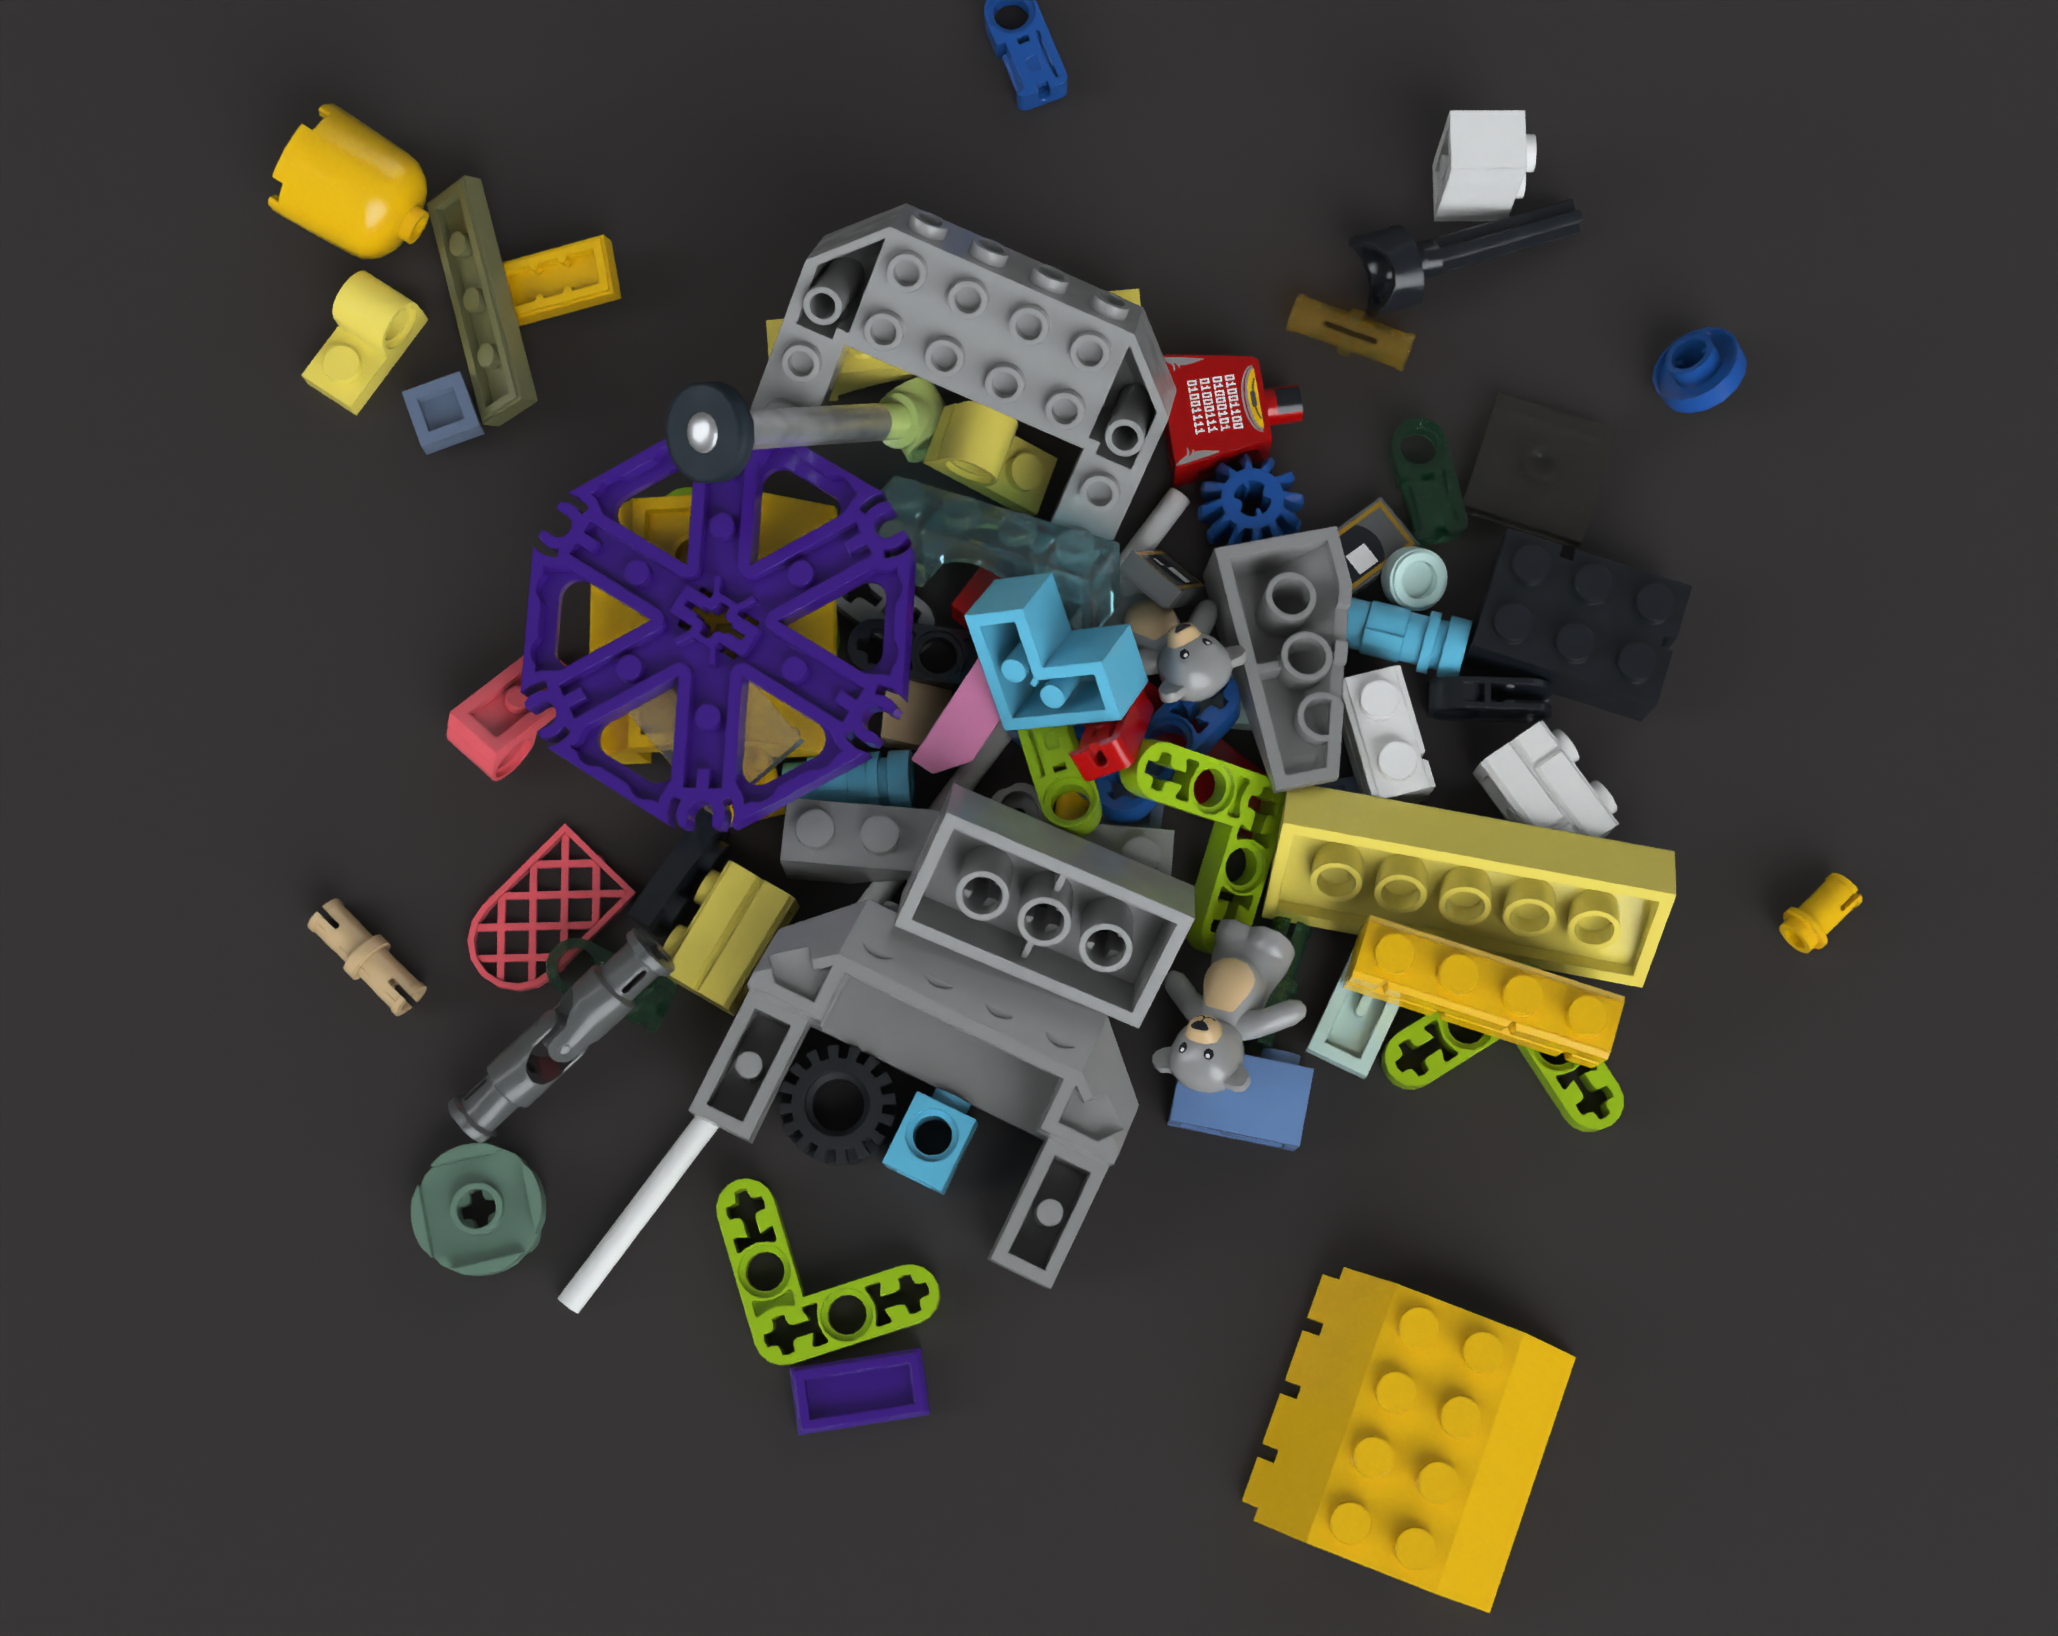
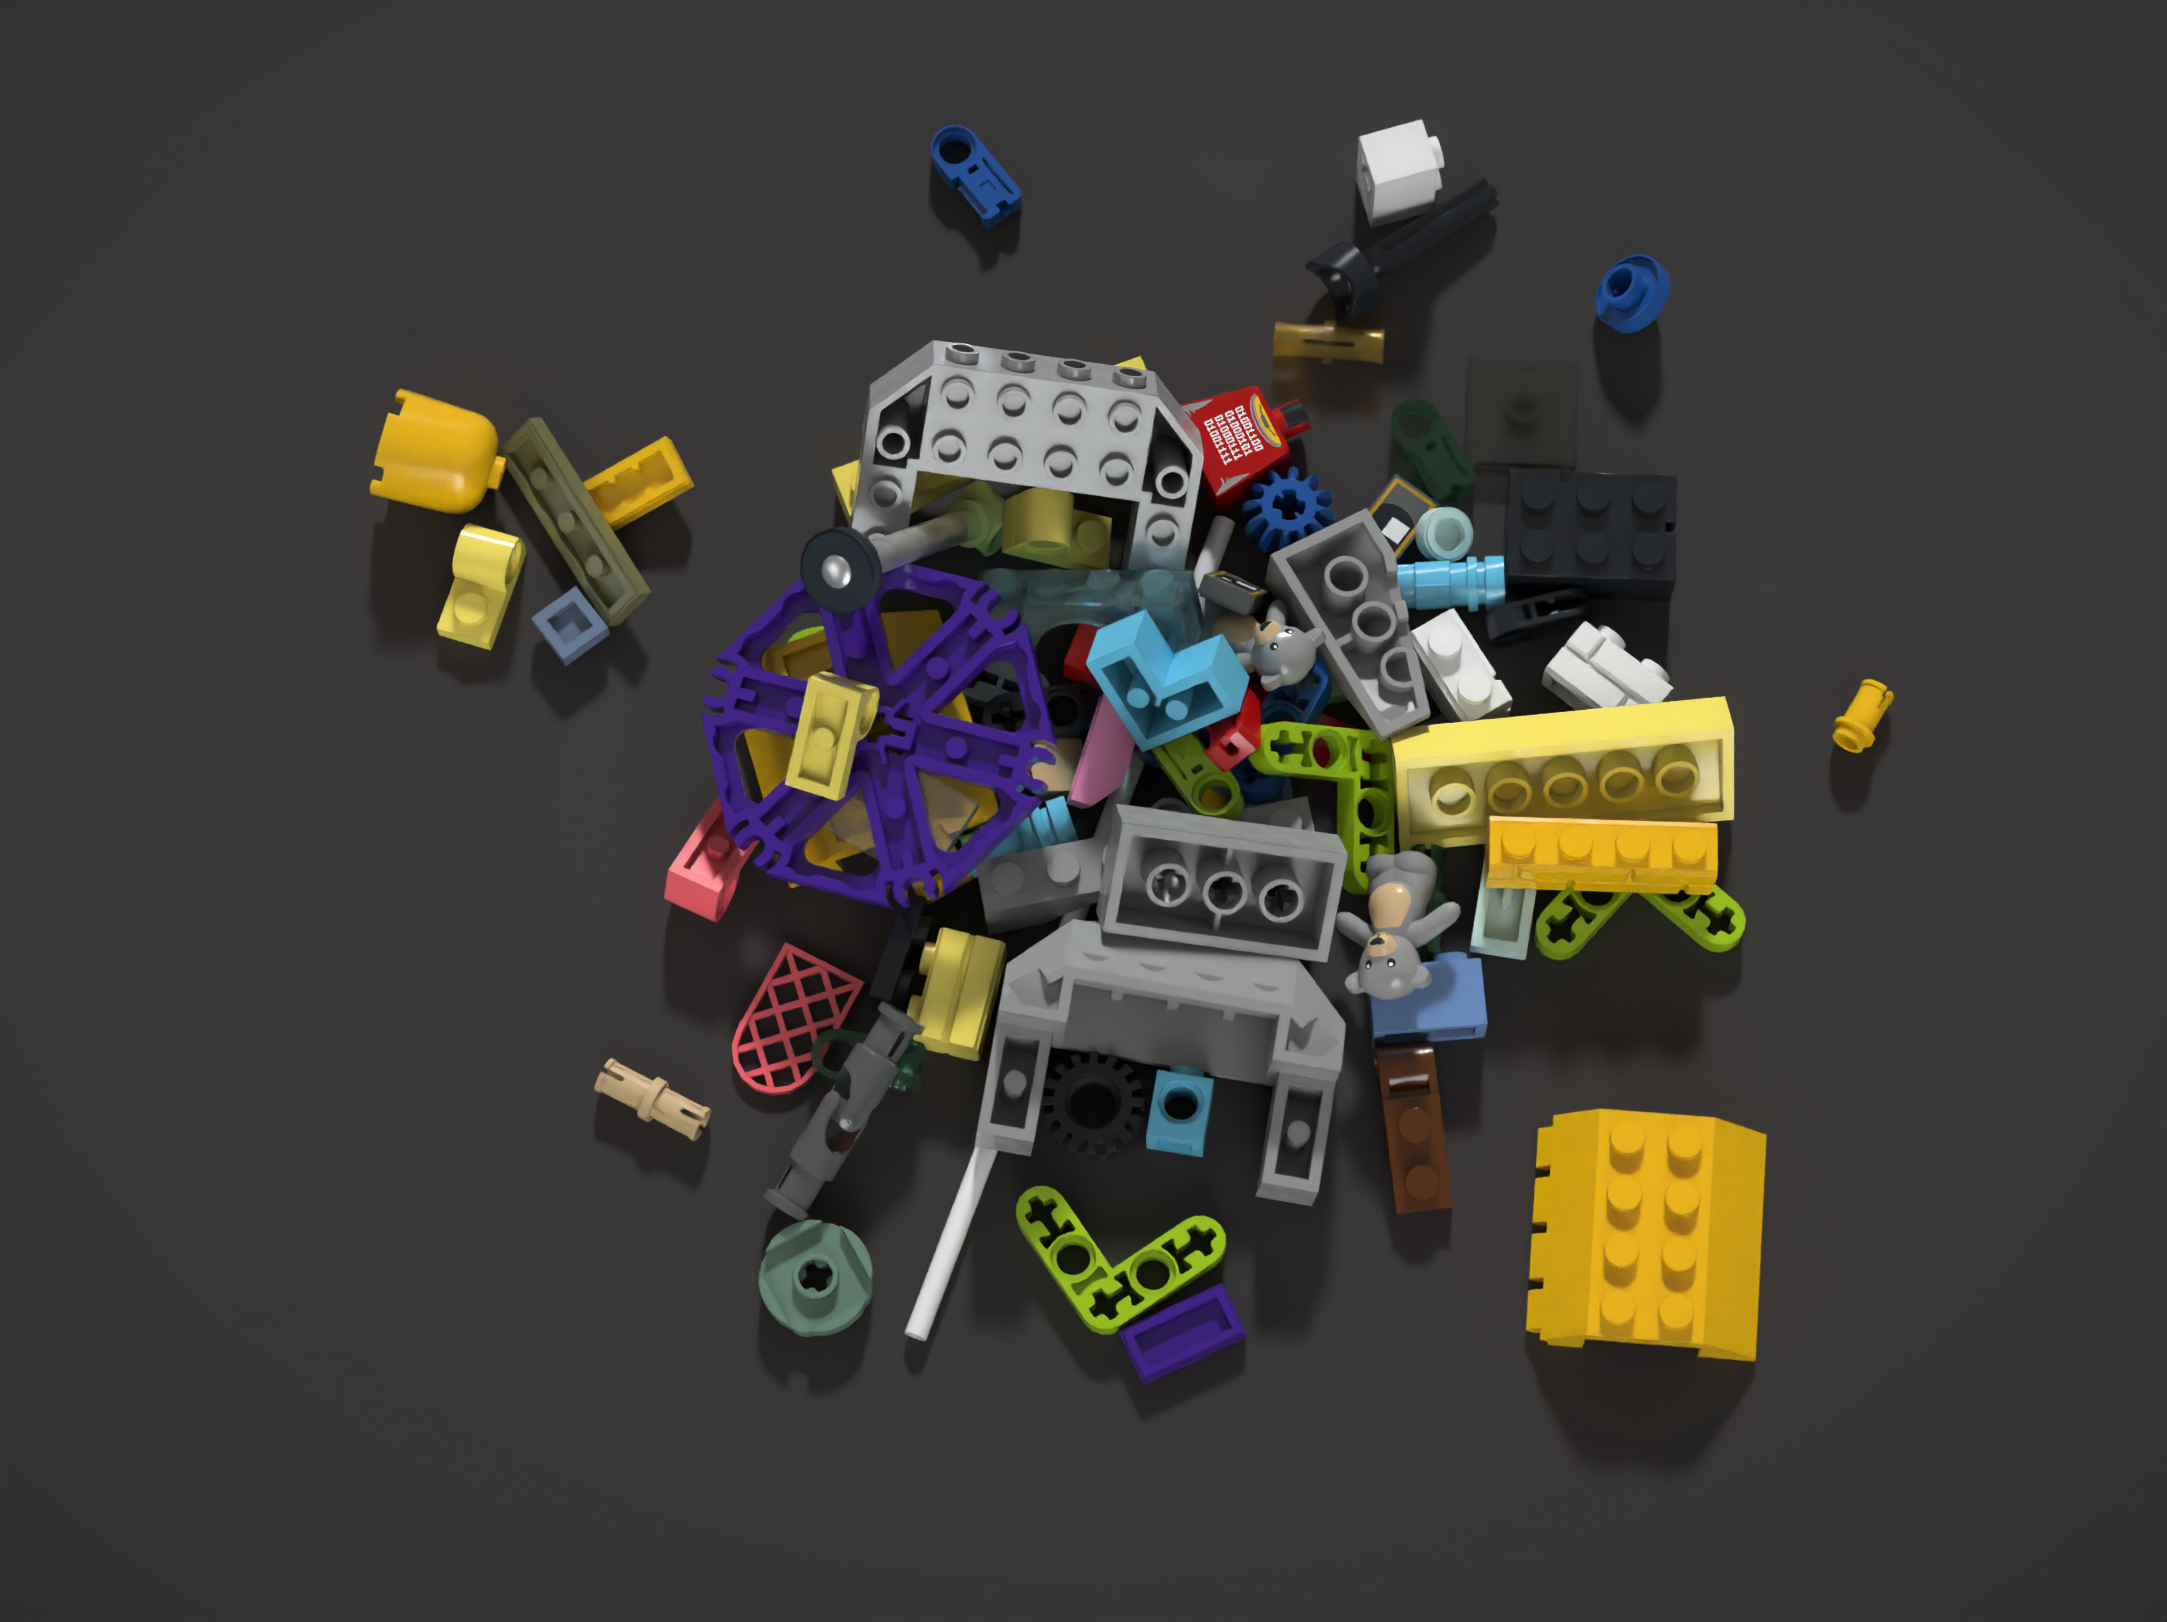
camera: 15 degrees left, 5 degrees down
(660, 601) = (831, 722): none -> light yellow plate
(1184, 1234) = (1413, 1126): none -> reddish brown plate

